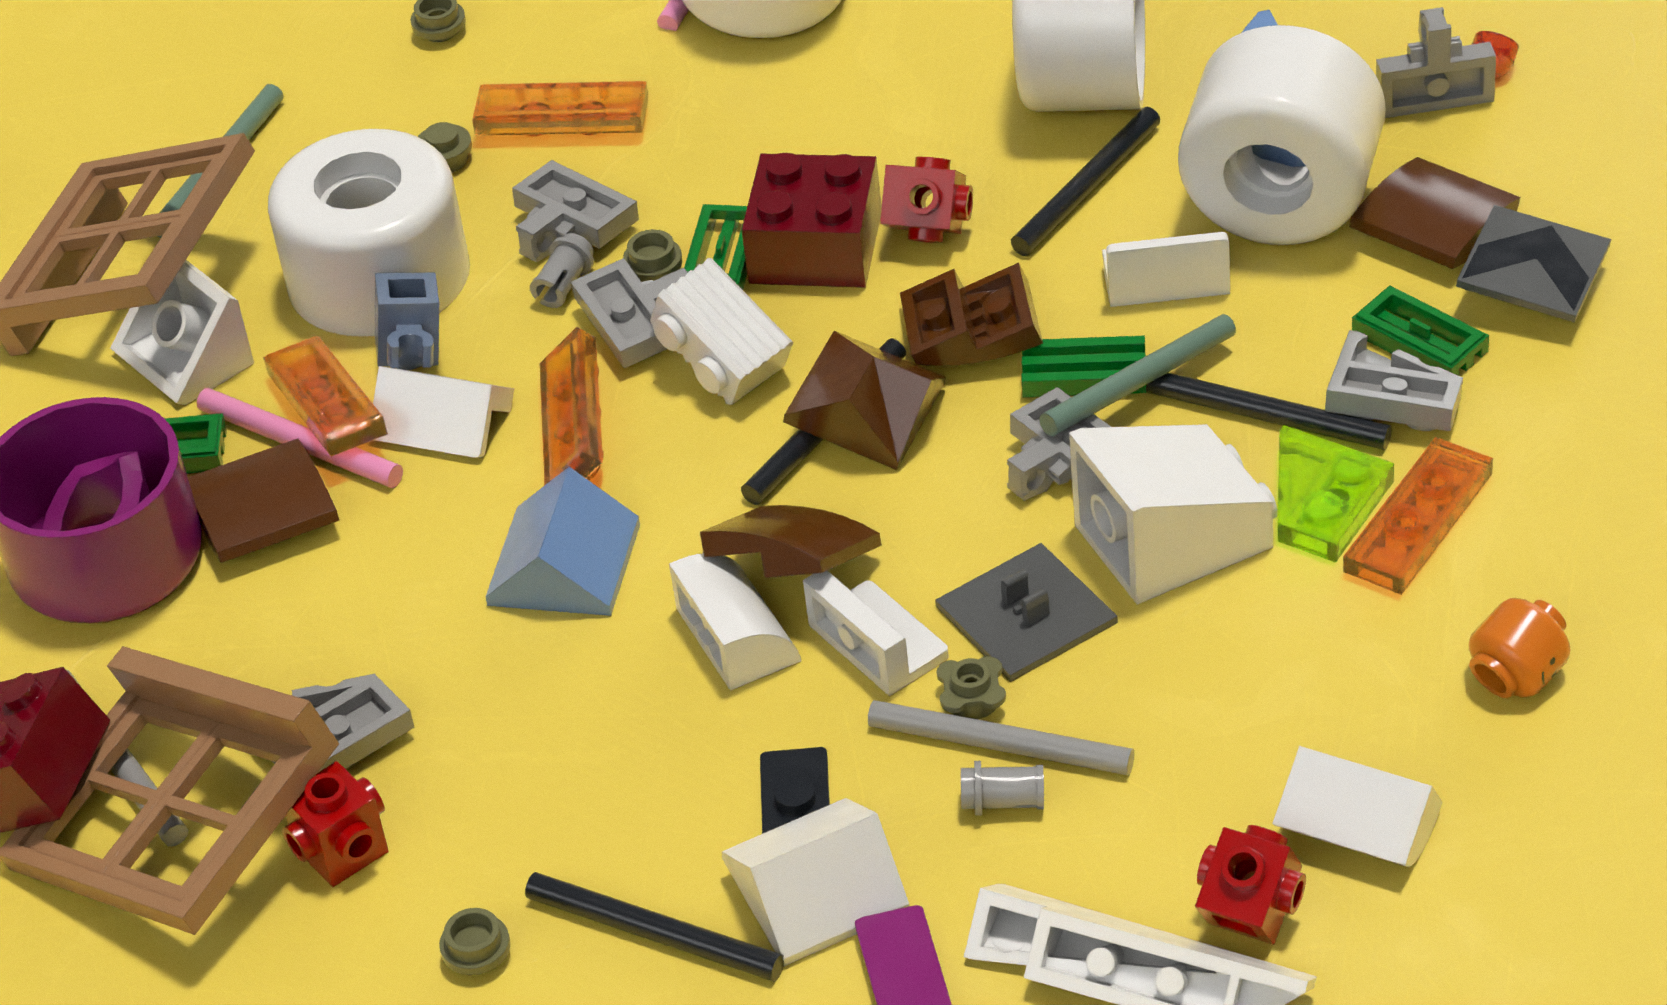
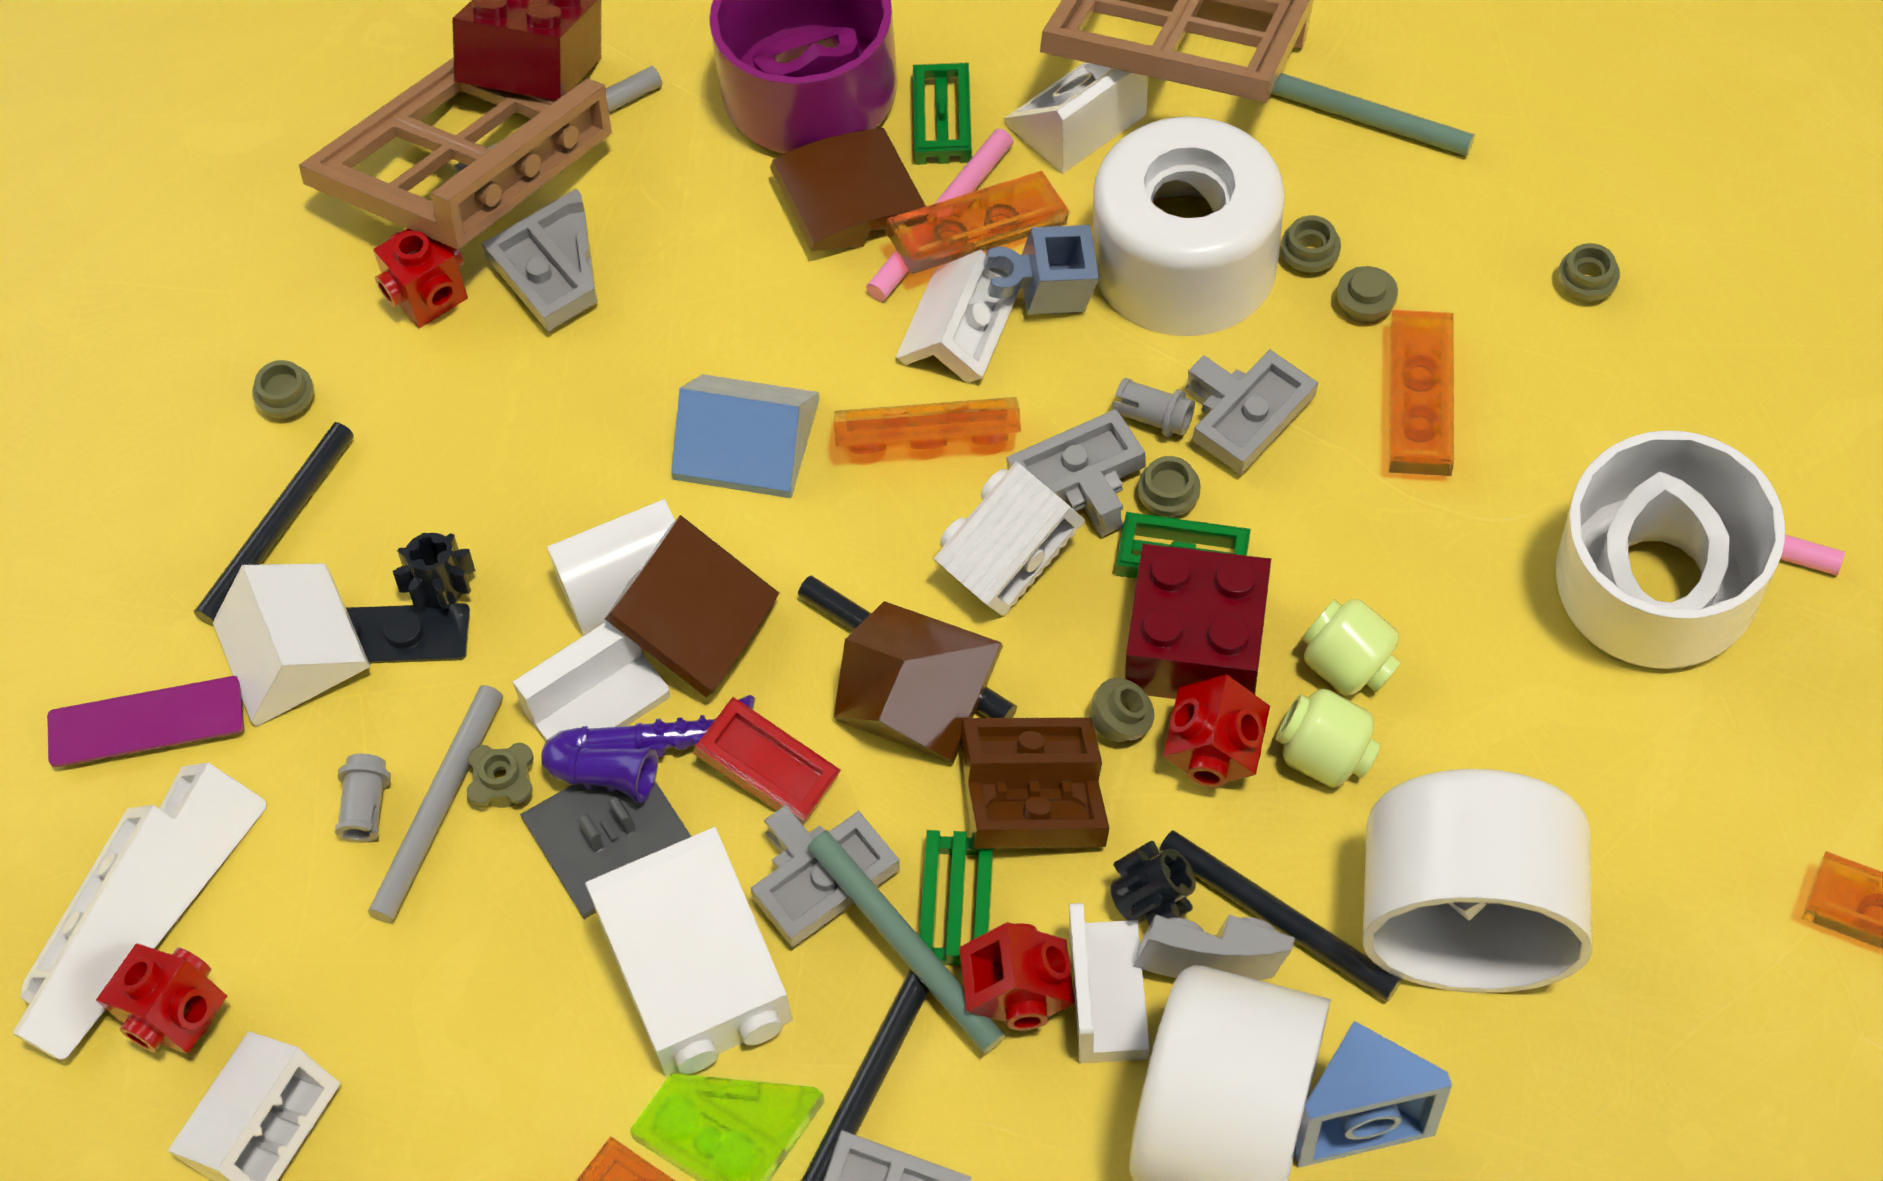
camera: 90 degrees right, 15 degrees up
(734, 758) = (434, 570): none -> black gear
(834, 127) = (1351, 647): none -> yellowish green head
(895, 268) = (1121, 710): none -> olive plate
(927, 132) = (1328, 738): none -> yellowish green head
(952, 605) = (620, 756): none -> dark purple piece
(953, 491) = (766, 760): none -> red tile
(1074, 232) = (1152, 884): none -> black gear
(1130, 182) = (1240, 947): none -> light grey slope
(1185, 281) = (1017, 975): none -> red brick

